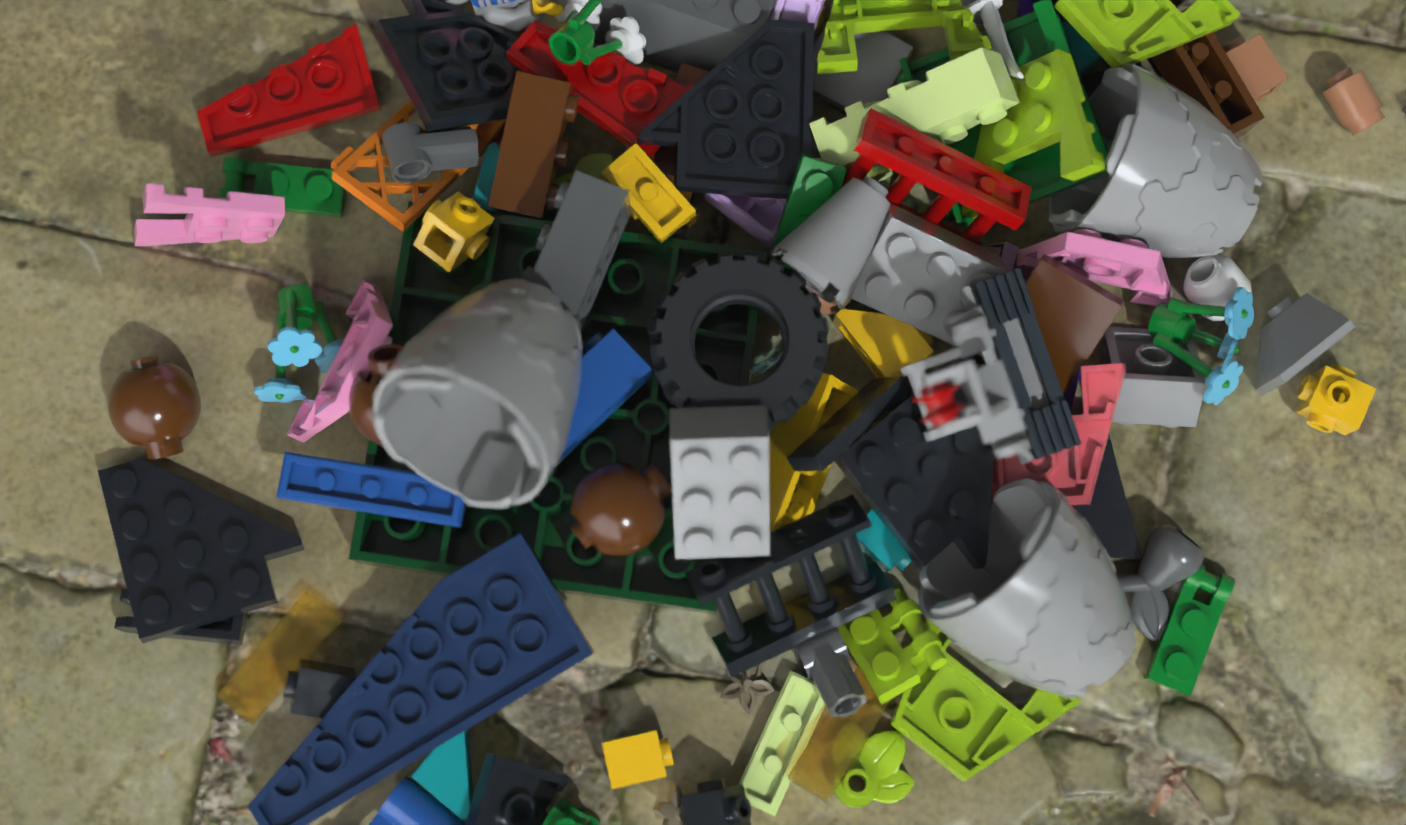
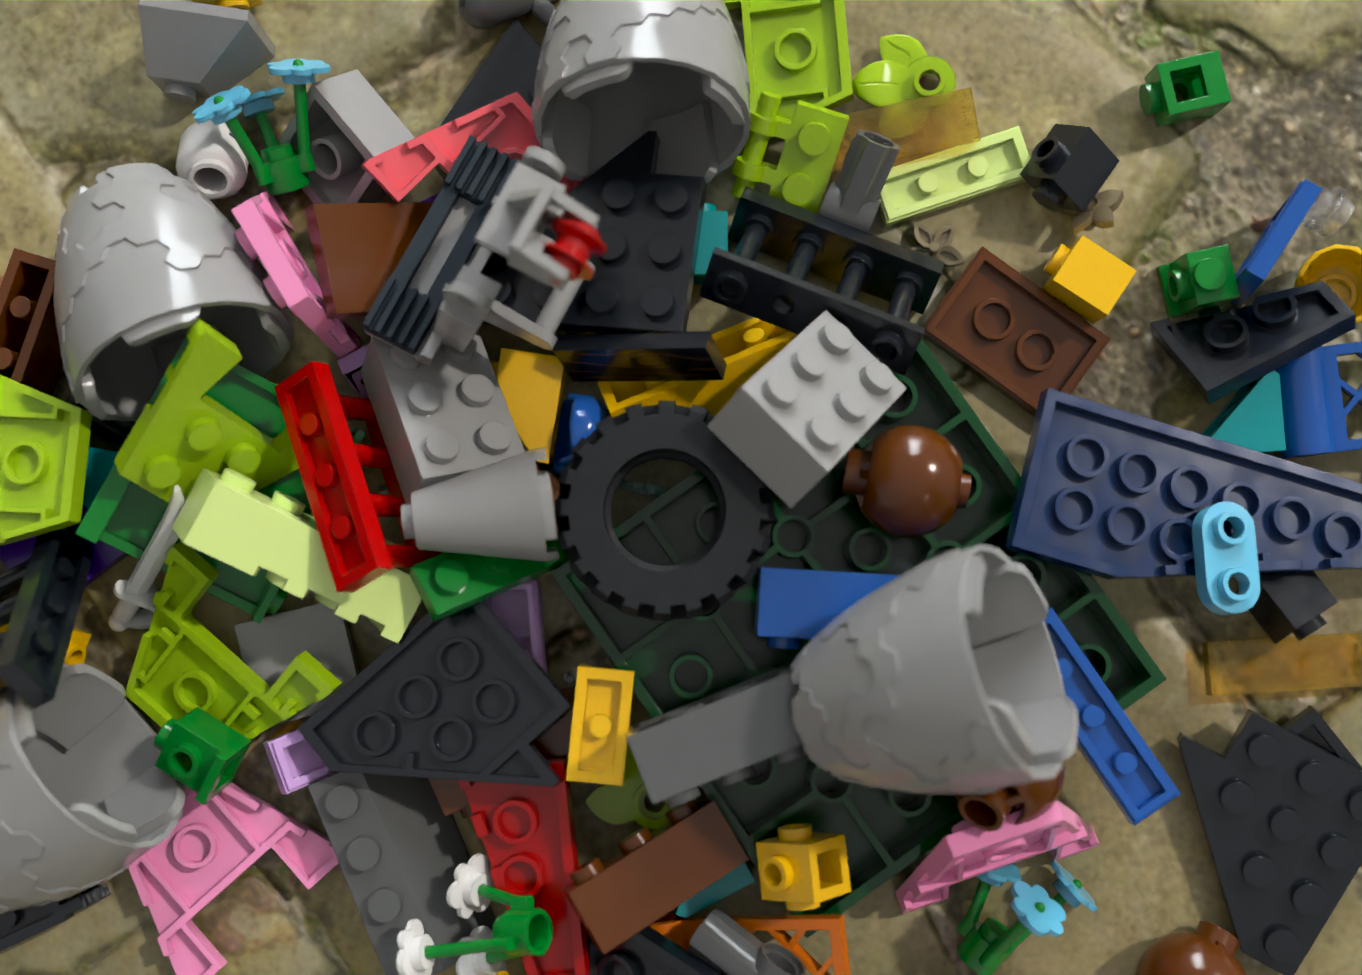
camera: 135 degrees left, 5 degrees up
(389, 655) = (1221, 557): none -> medium azure plate
(645, 685) = (1013, 332): none -> reddish brown tile
(842, 358) = (576, 421): none -> blue hair

